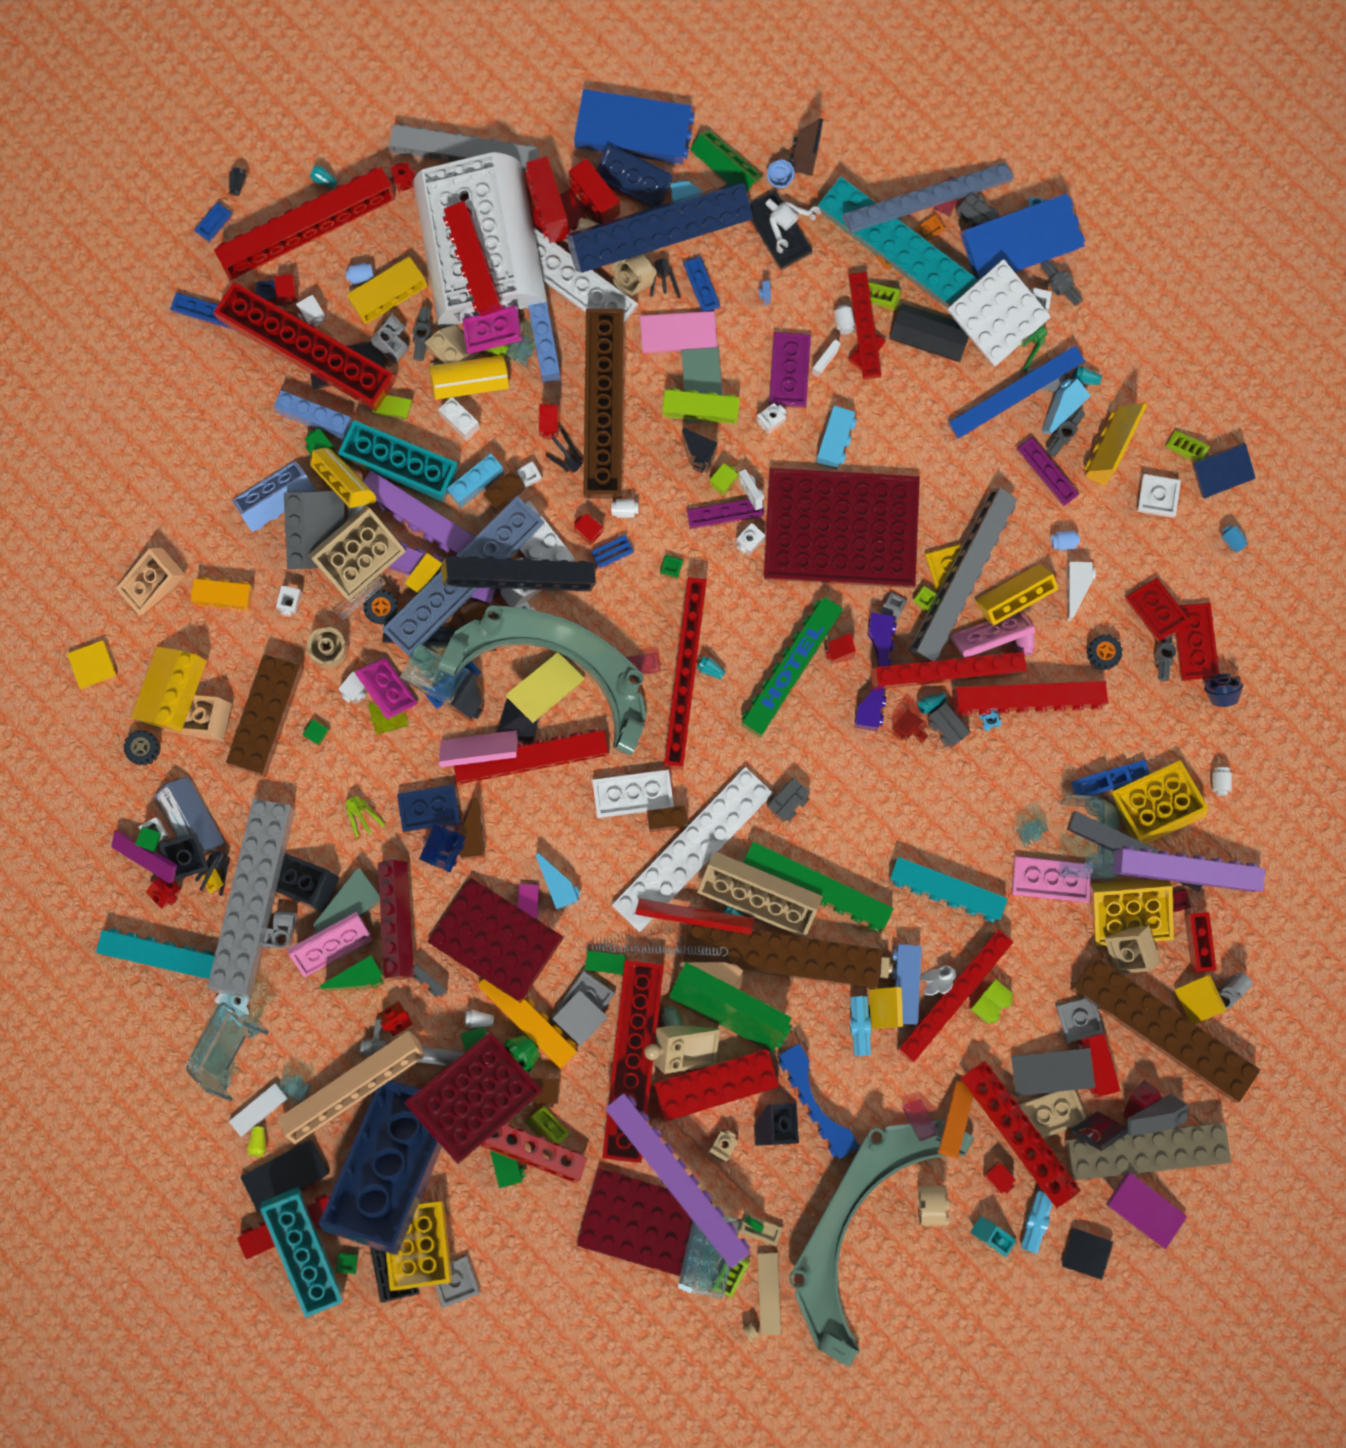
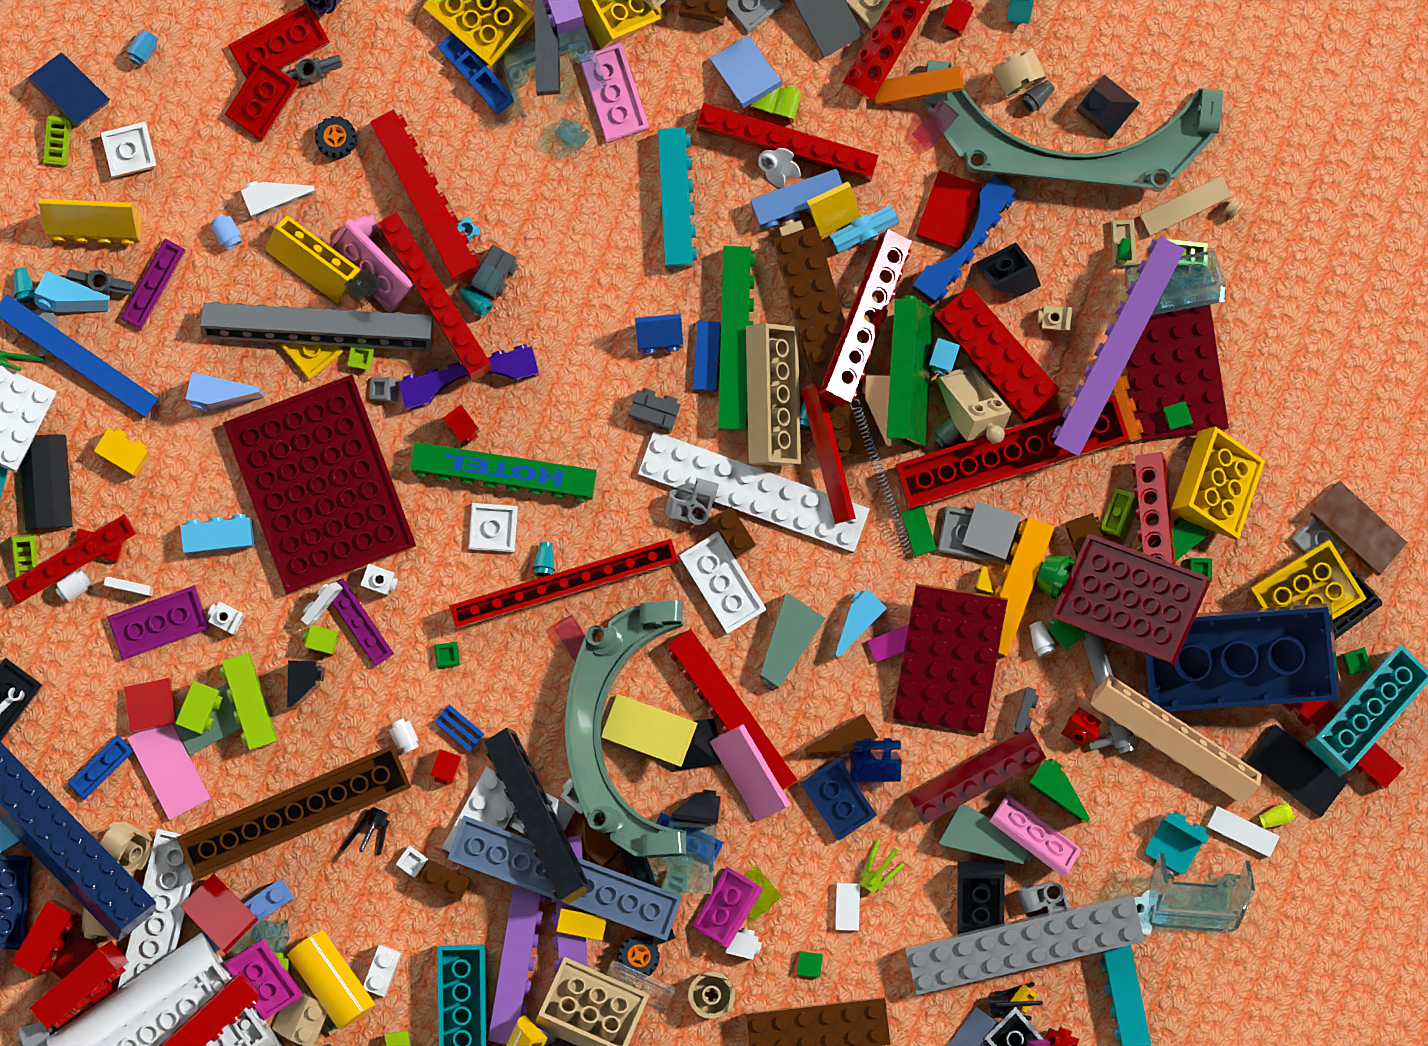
camera: 120 degrees left, 5 degrees up
(274, 1053) = (1177, 841): none -> teal bracket
(294, 1087) = (1201, 803): clear light blue brick -> none
(345, 779) = (847, 906): none -> white tile
(450, 1313) = (1358, 528): none -> reddish brown tile
(475, 480) = (446, 918): medium azure brick -> none
(475, 1171) = (1201, 566): none -> green tile
(535, 1215) = (1218, 483): none -> yellow slope
(544, 994) = (983, 582): none -> yellow slope
(548, 421) = (342, 865): red slope -> none
(554, 318) = (219, 913): none -> tile
(568, 827) = (791, 636): none -> sand green slope
(603, 1207) = (1177, 415): none -> green tile
(627, 1169) = (1127, 408): none -> orange plate
(662, 270) = (102, 819): black plant -> none
(704, 791) = (683, 505): none -> light grey piece
(712, 369) = (199, 707): none -> lime brick
(730, 337) = (150, 705): none -> red tile
(731, 1040) = (943, 356): none -> medium azure slope
(745, 939) = (833, 387): none -> brick
(752, 641) = (493, 527): none -> white tile
(765, 293) = (80, 689): medium blue plate -> none
(813, 859) = (706, 355): none -> blue tile
(846, 830) = (659, 333): none -> blue slope
(847, 1100) = (948, 210): none -> red tile
(877, 1267) = (1107, 106): none -> black slope
(908, 726) = (515, 316): clear red brick -> none
(908, 1213) = (1037, 96): none -> dark grey cone
(929, 395) = (122, 451): none -> yellow brick
(945, 716) = (487, 278): none -> clear light blue tile
(947, 473) = (216, 393): none -> light blue slope
(978, 620) = (364, 286): none -> clear smoke slope
(1025, 988) = (746, 71): none -> medium blue tile

